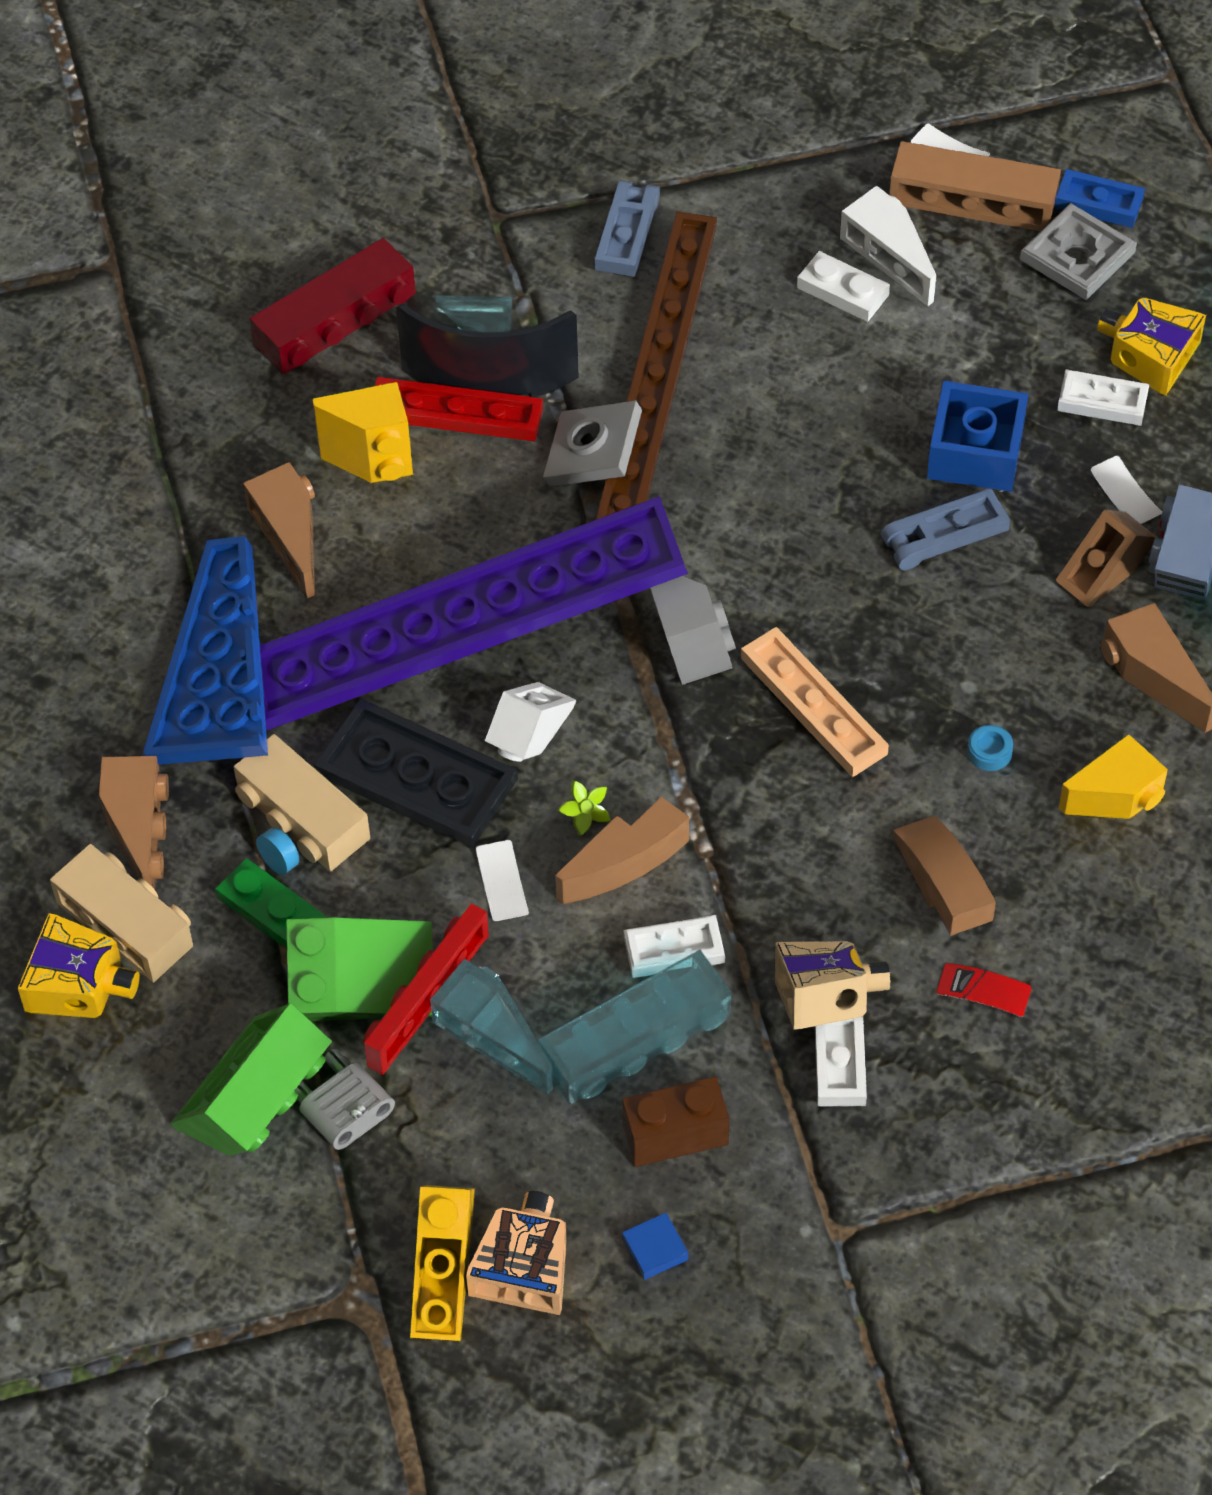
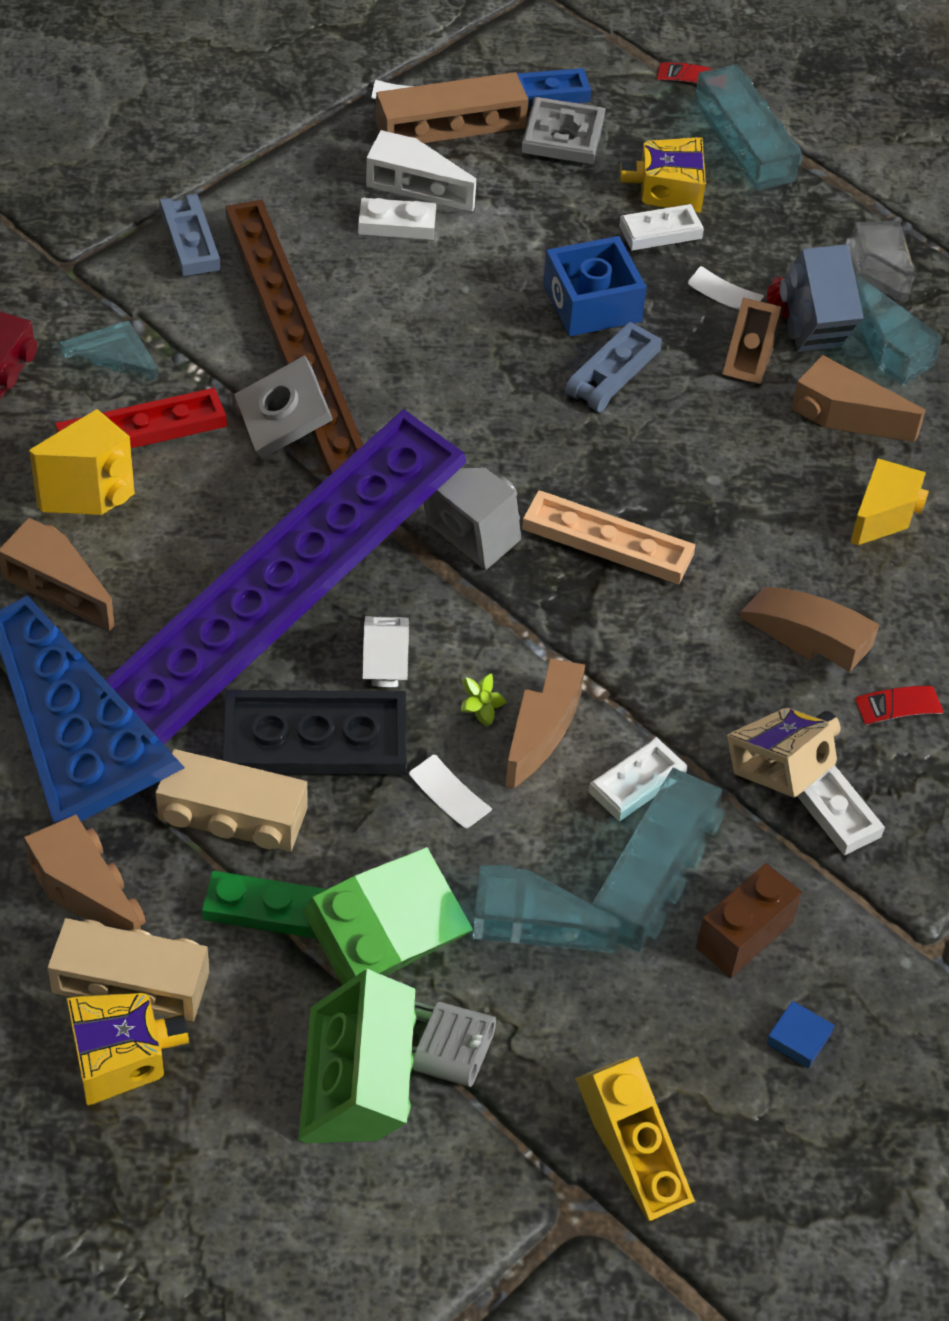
camera: 35 degrees left, 5 degrees down
(277, 850) = (238, 851): dark azure tile -> none
(412, 1003) = (461, 921): red plate -> none
(502, 362) = (145, 370): black panel -> none
(522, 1257) = (706, 1097): torso -> none
(990, 747) = (767, 517): dark azure tile -> none

